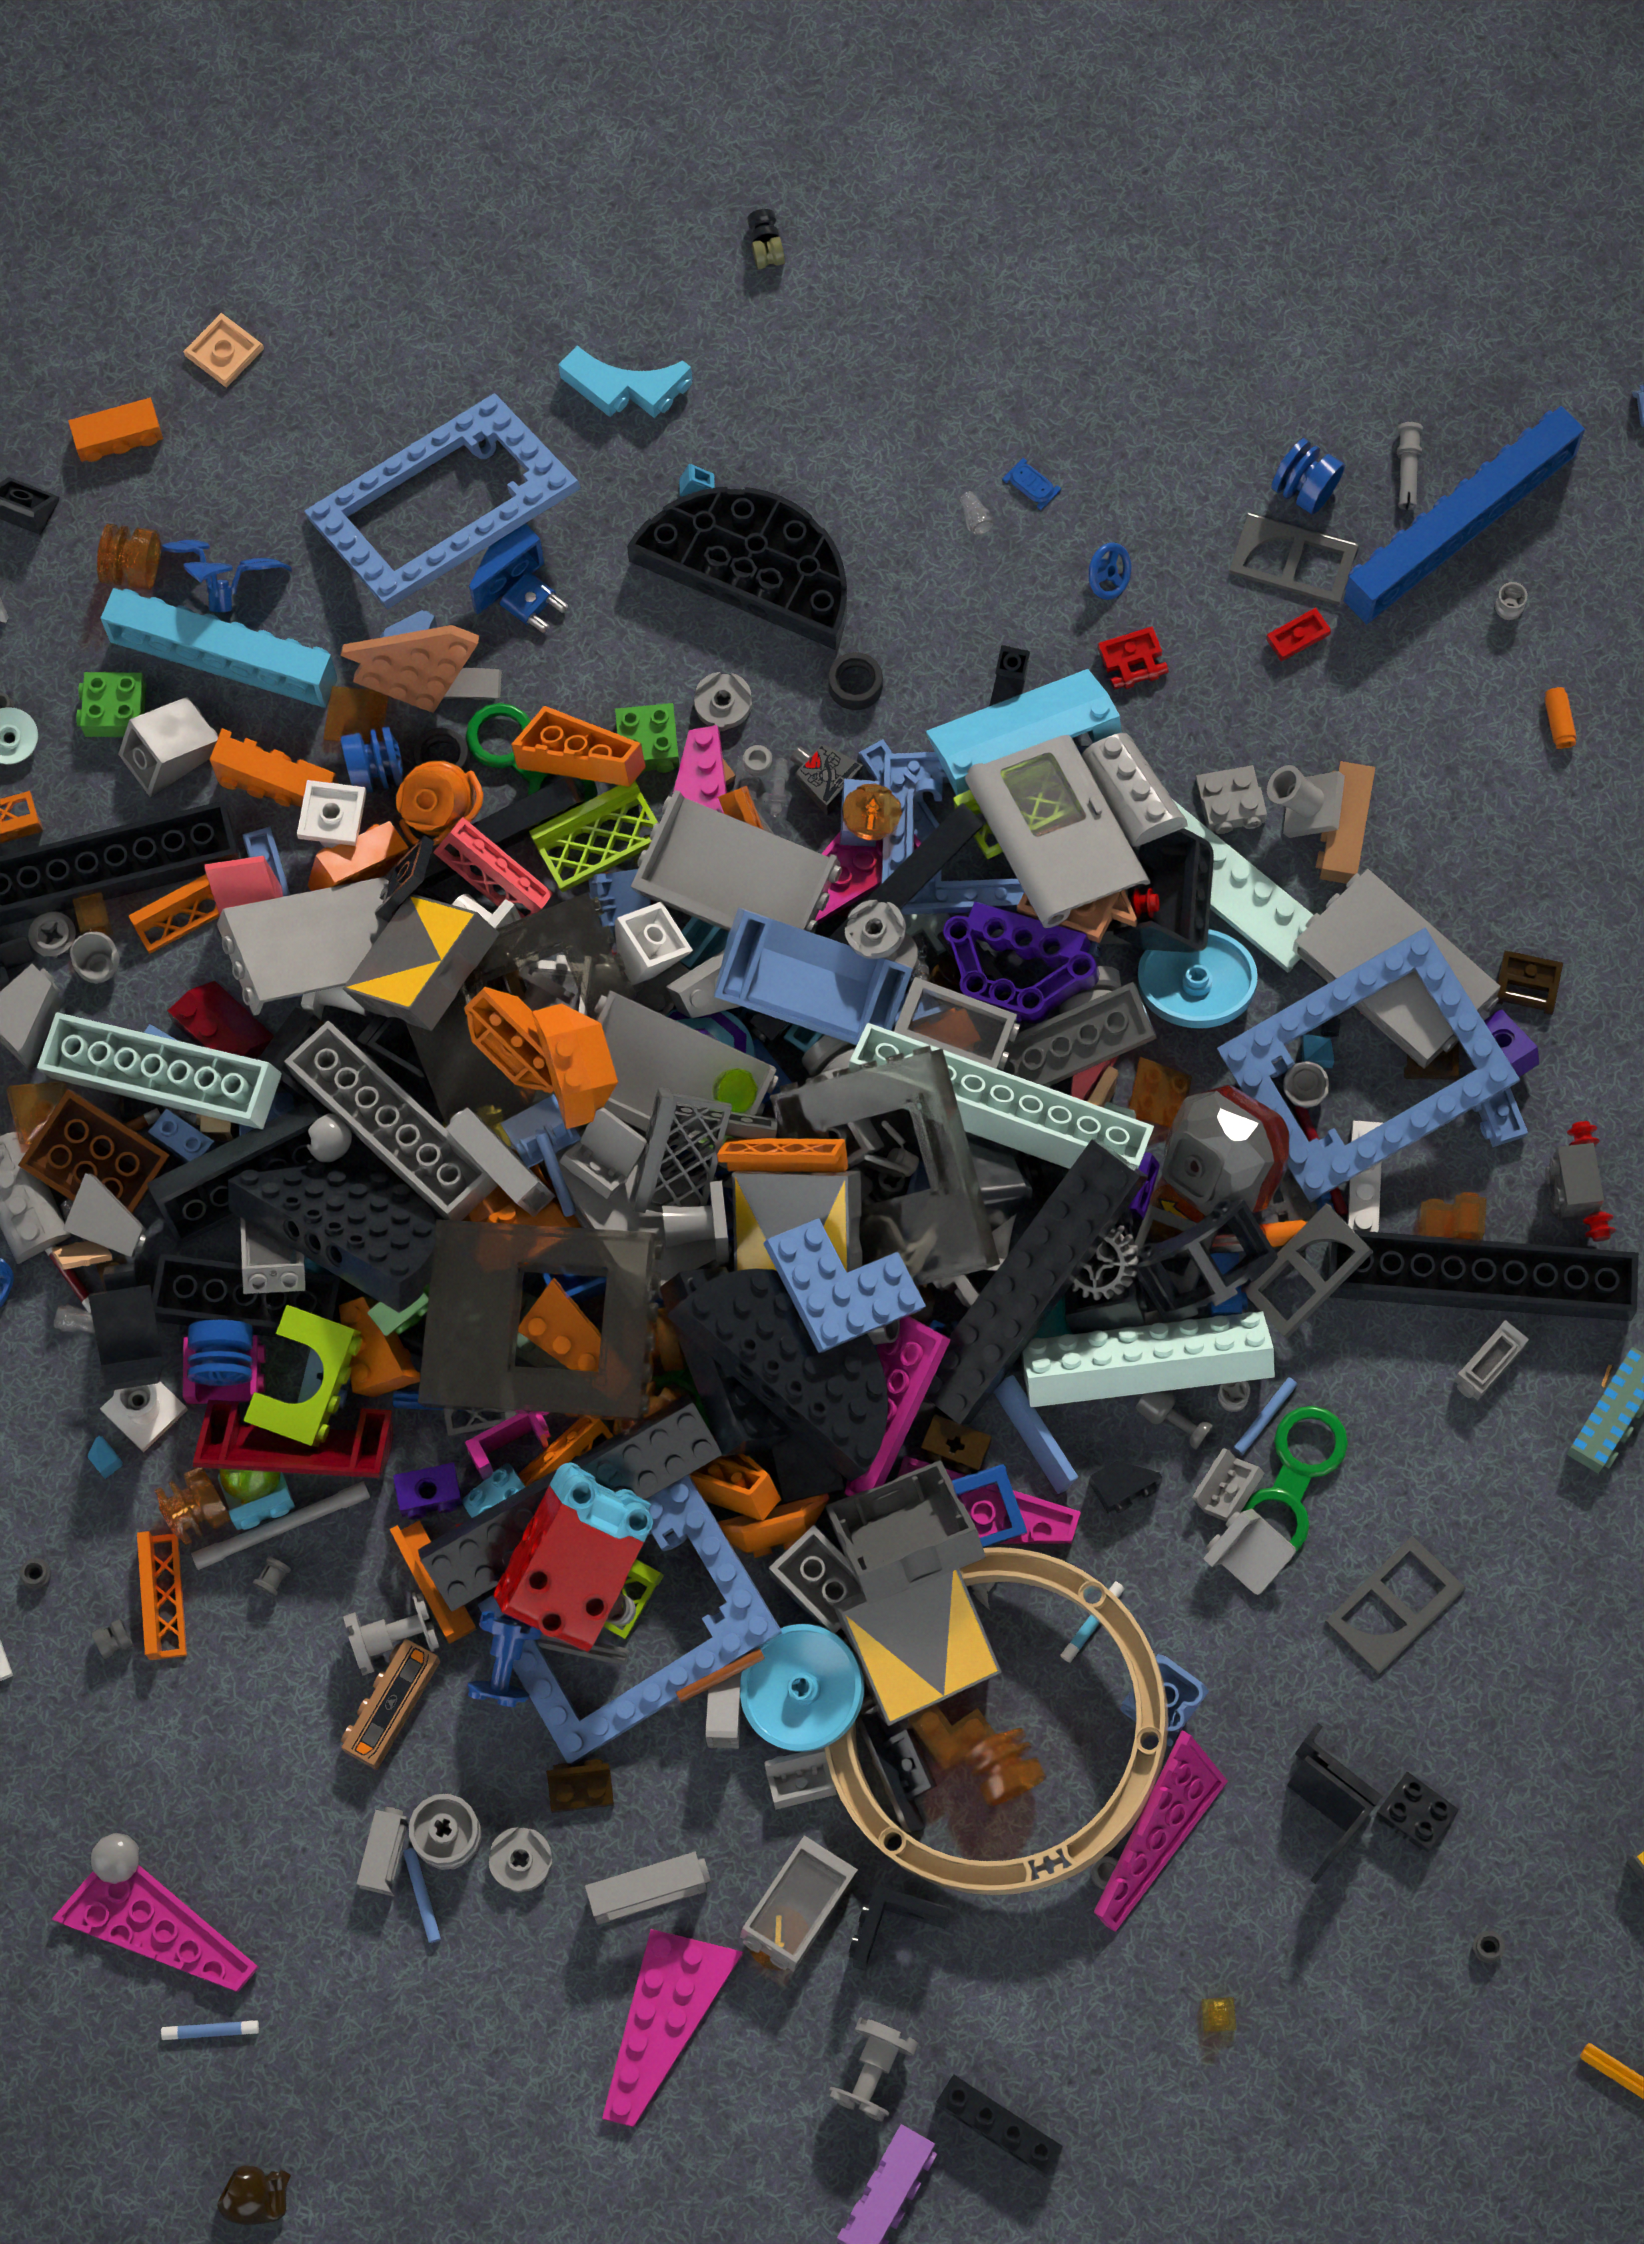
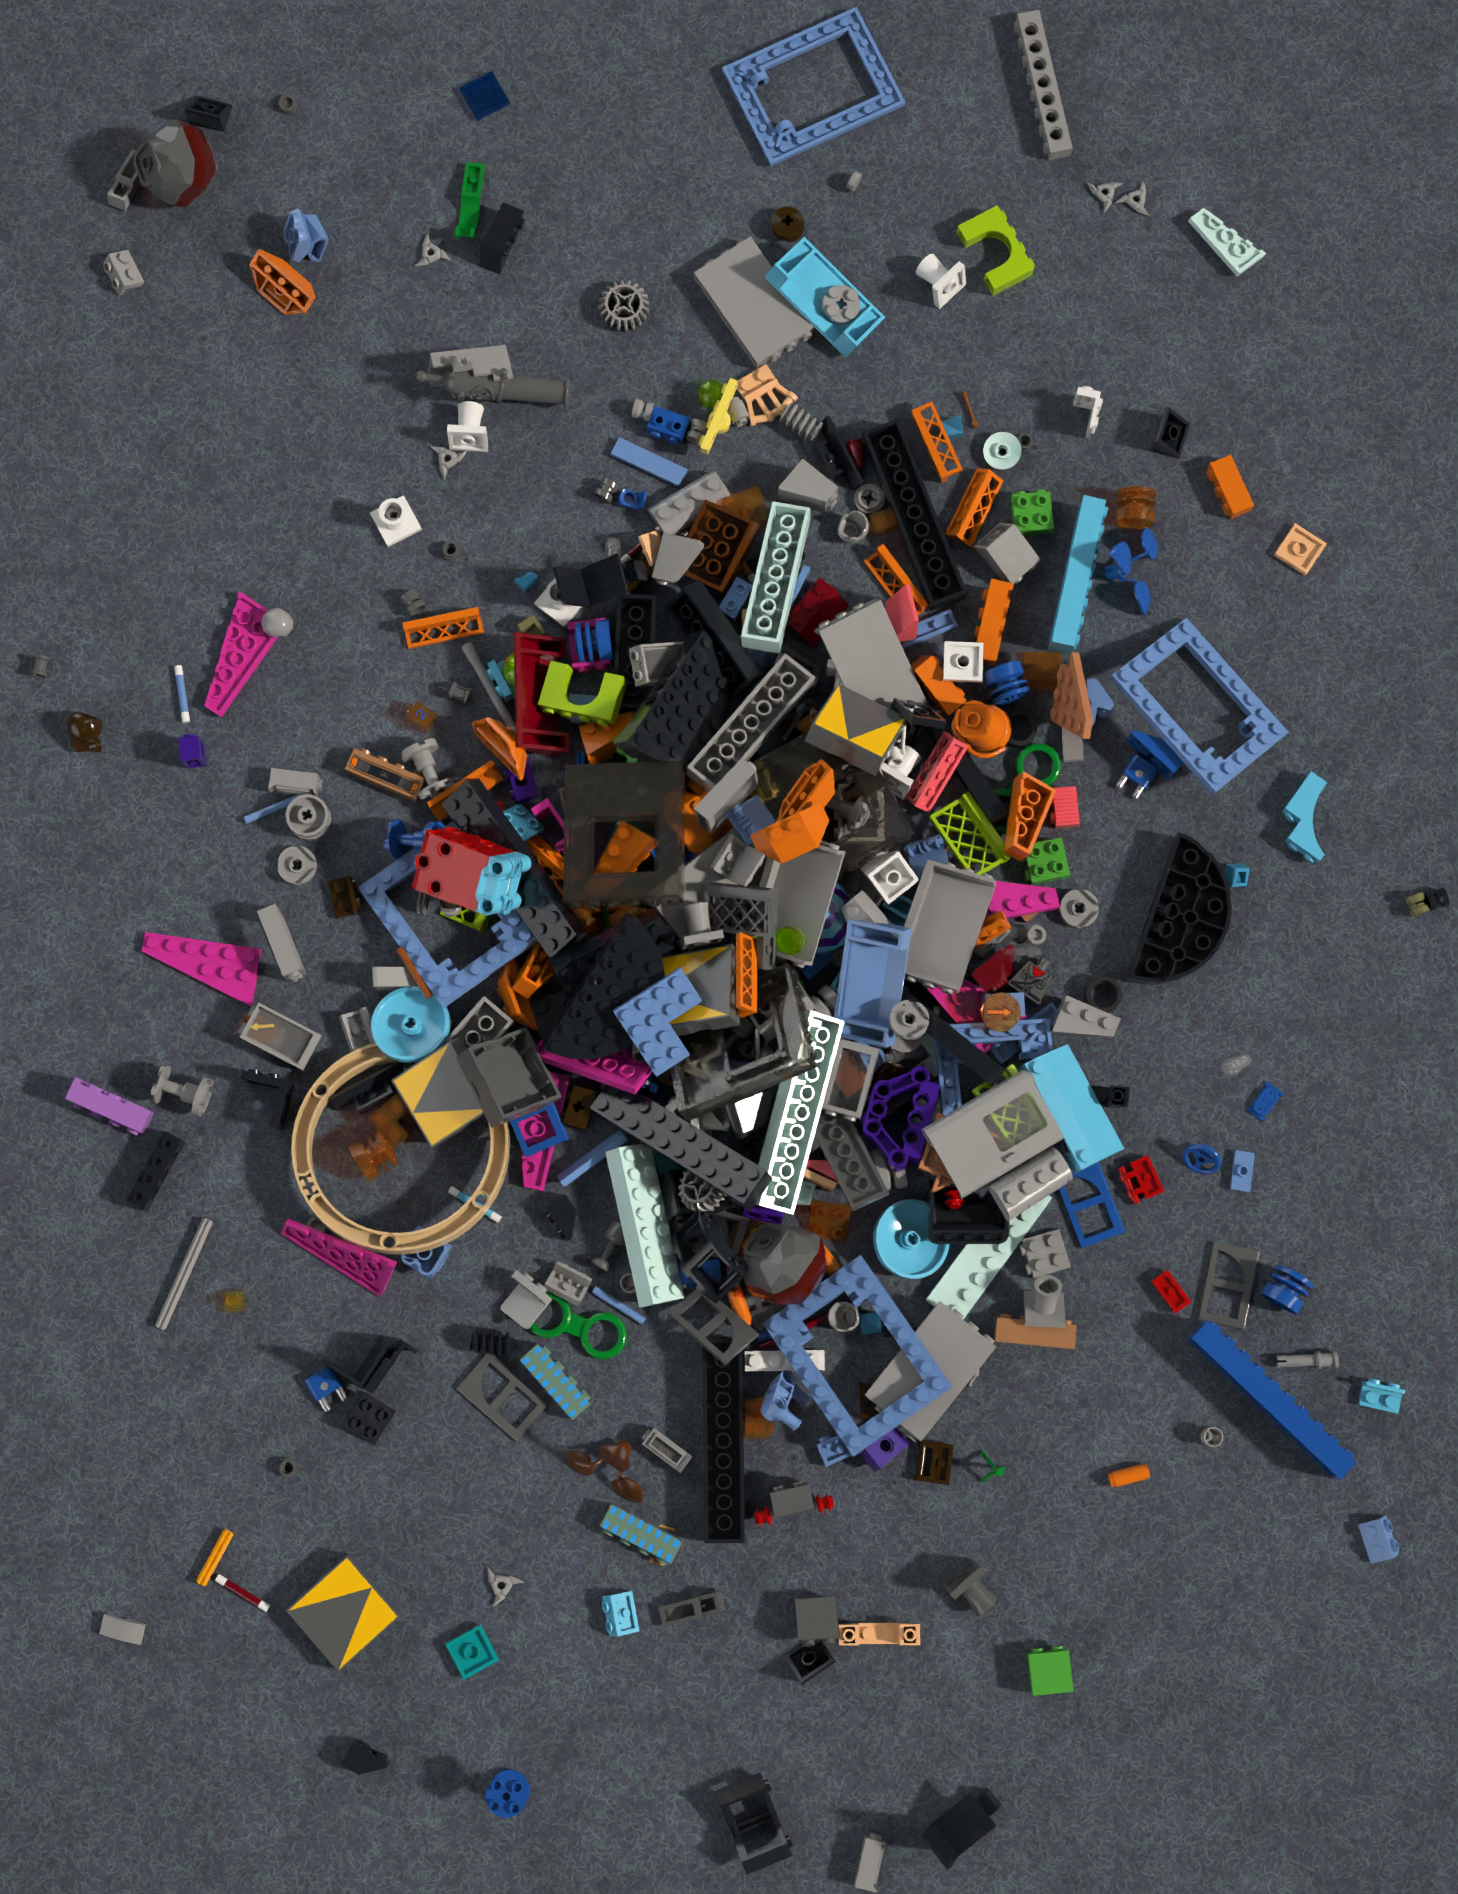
camera: 80 degrees right, 10 degrees up
(86, 788) = (971, 503): none -> orange fence
(181, 1453) = (531, 626): none -> olive panel
(192, 1505) = (496, 637): clear orange wheel -> none
(301, 1640) = (421, 716): none -> clear orange brick
(311, 2012) = (192, 751): none -> dark purple brick
(329, 1138) = (738, 688): light grey hair -> none
(366, 1511) = (502, 743): none -> orange wedge
(397, 1035) = (805, 724): none -> clear orange slope
(555, 1173) = (723, 832): medium blue bar -> none
(571, 698) = (1065, 808): none -> coral brick
(805, 812) = (996, 970): none -> dark red slope
(890, 708) = (1083, 1020): none -> light grey wedge
(1130, 523) = (1242, 1171): none -> medium blue plate
(1131, 715) = (1094, 1175): none -> blue window
(1168, 2094) = (183, 1274): none -> light grey axle
(1309, 1610) = (491, 1342): none -> black piece
(1360, 1880) = (323, 1384): none -> blue piece
(1377, 1518) = (555, 1381): none -> sand green brick
(1424, 1182) = (778, 1397): none -> medium blue piece
(1465, 379) = (1380, 1396): none -> medium azure bracket
(1504, 1418) = (617, 1457): none -> reddish brown plant
(1545, 893) = (999, 1471): none -> green plant

